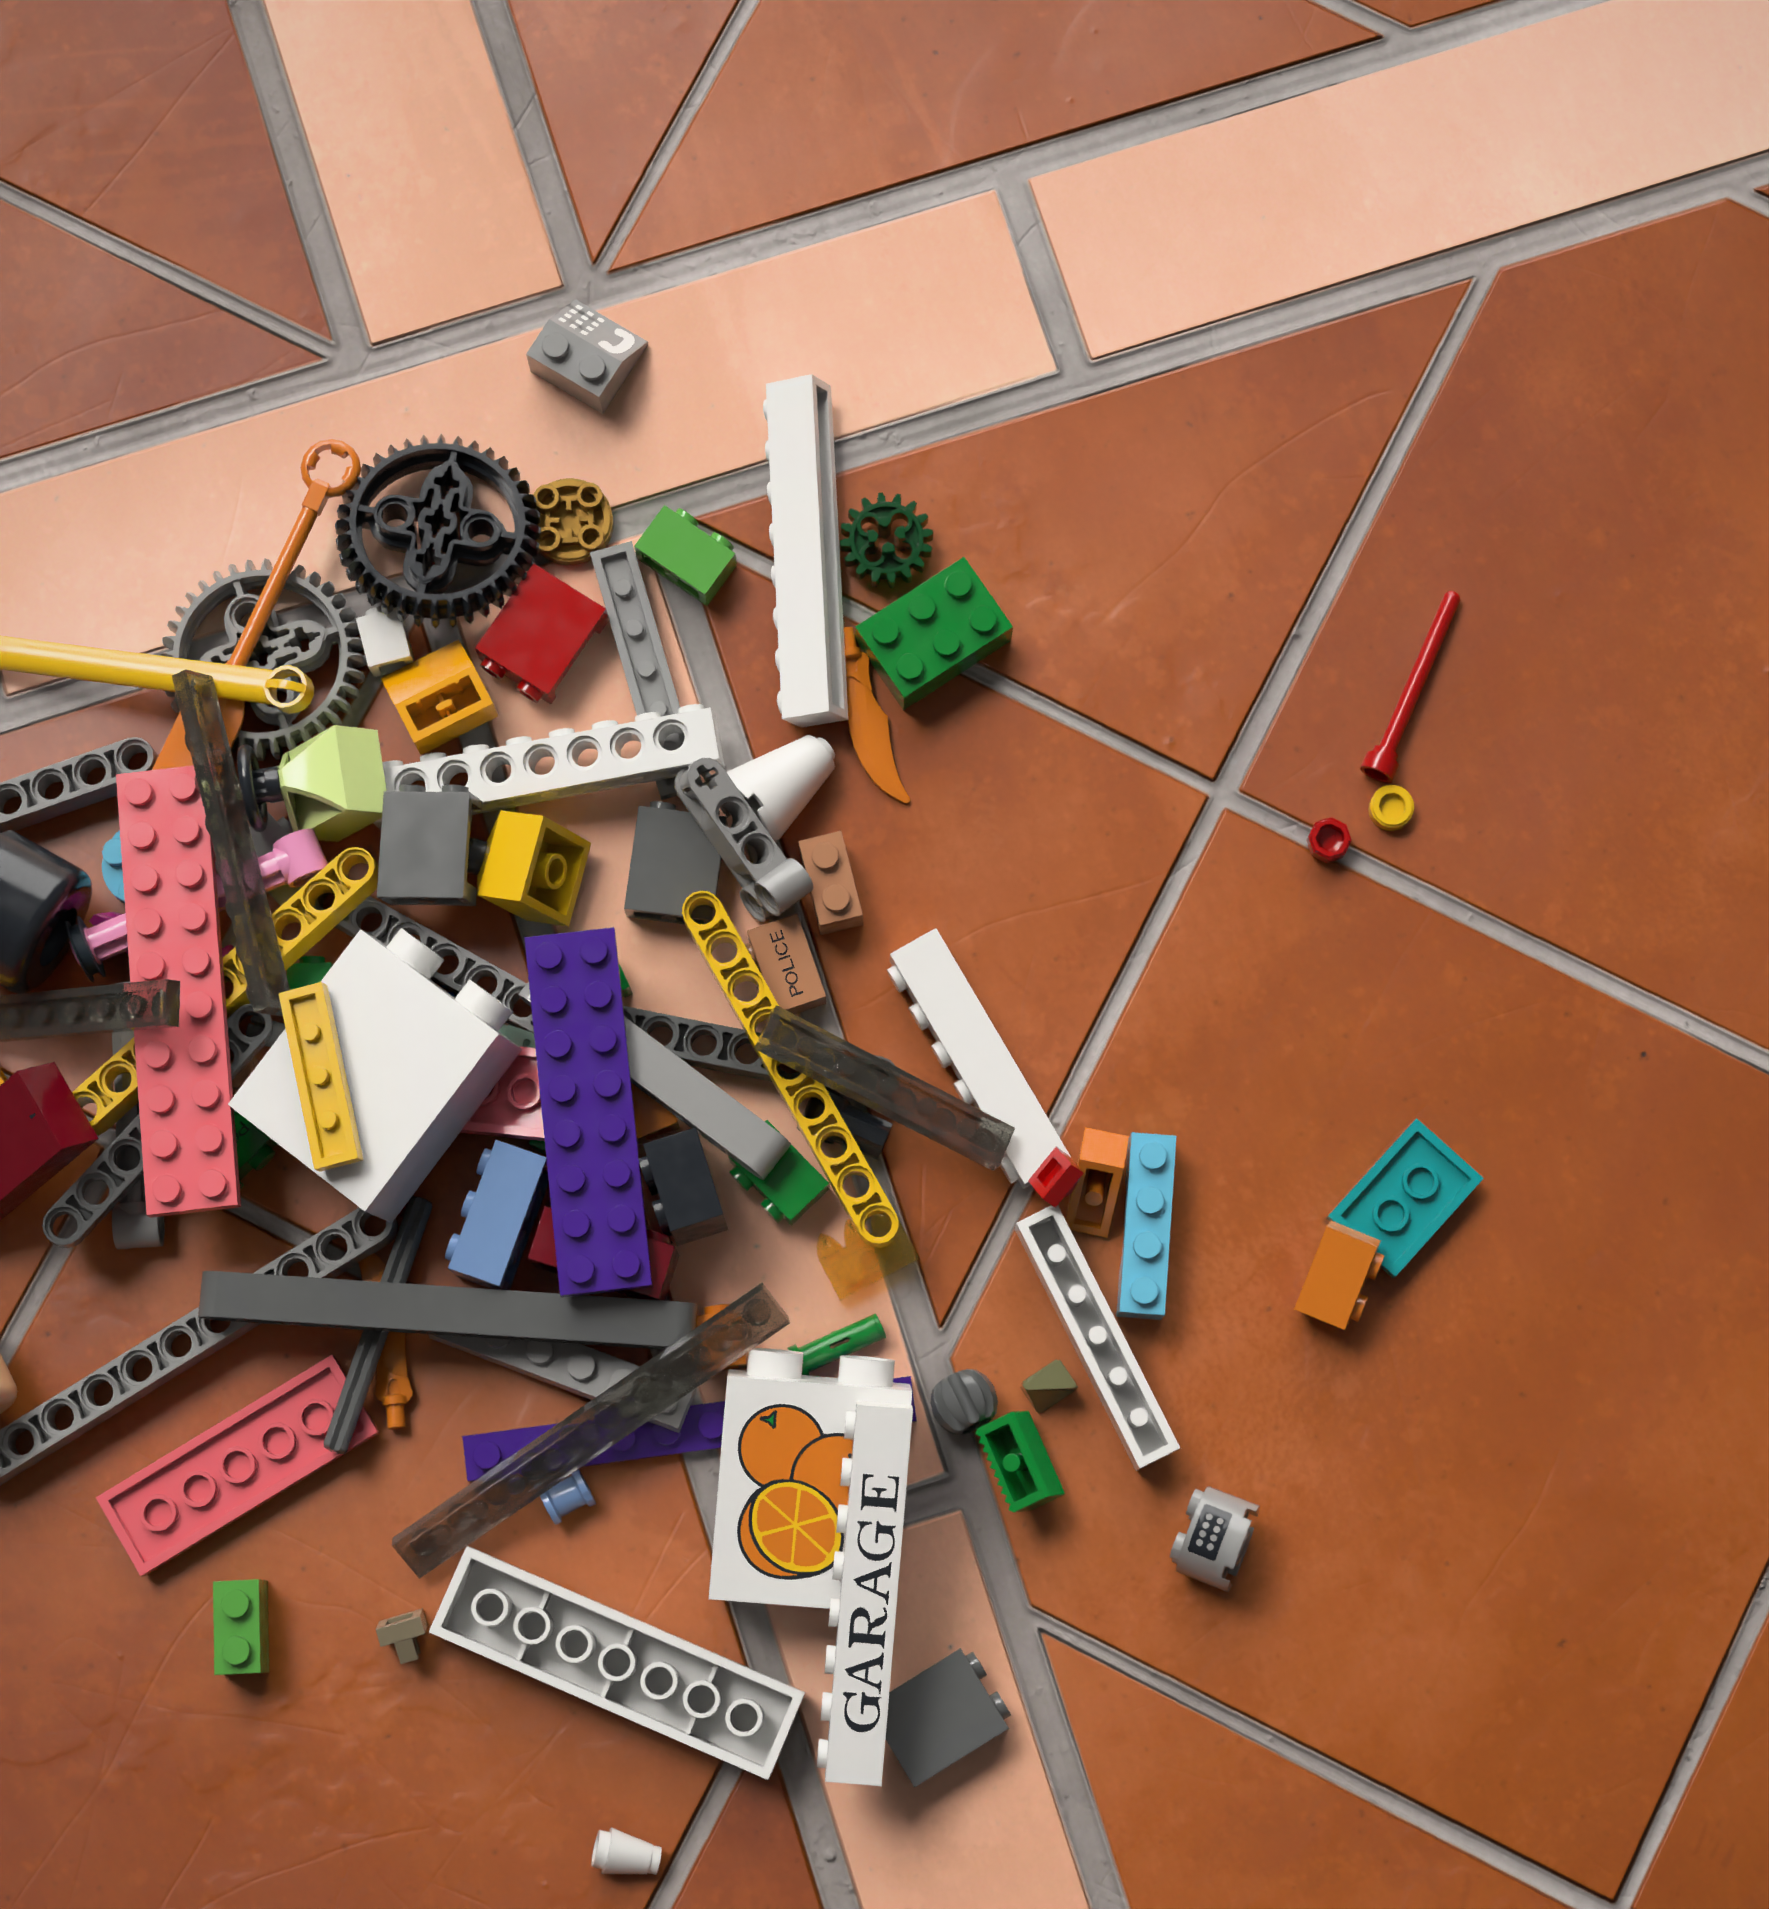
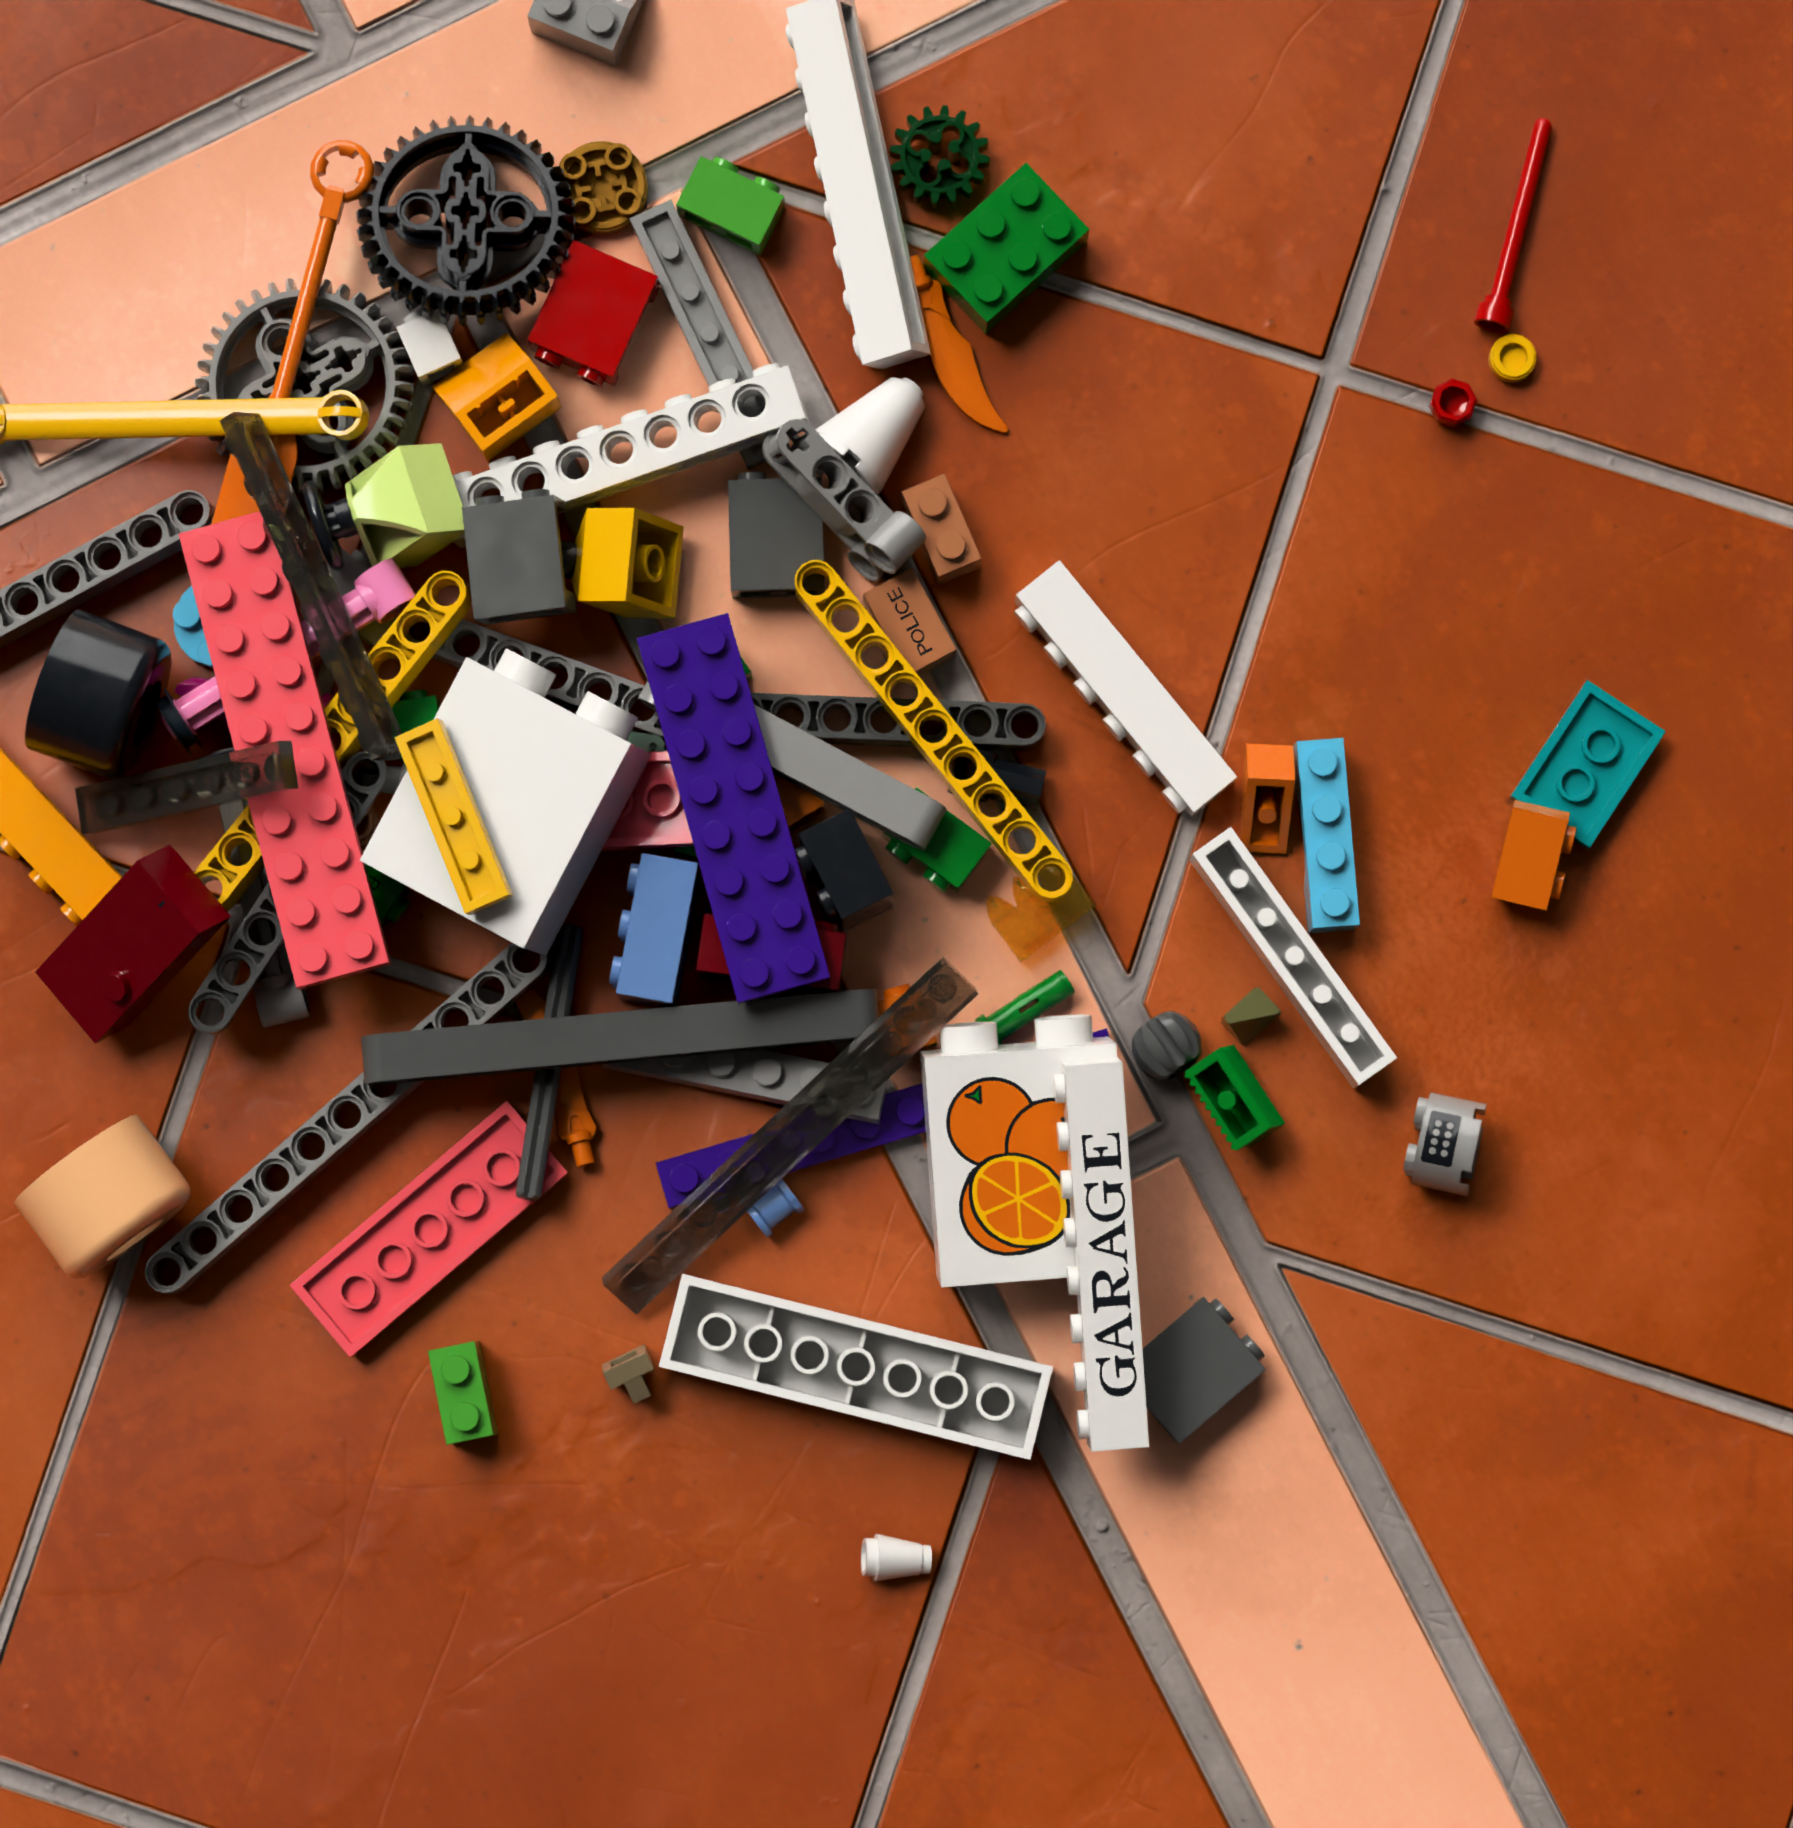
camera: 10 degrees left, 5 degrees up
(884, 1088) = (1035, 736): clear smoke plate -> none
(1056, 1177) = (1226, 800): red plate -> none

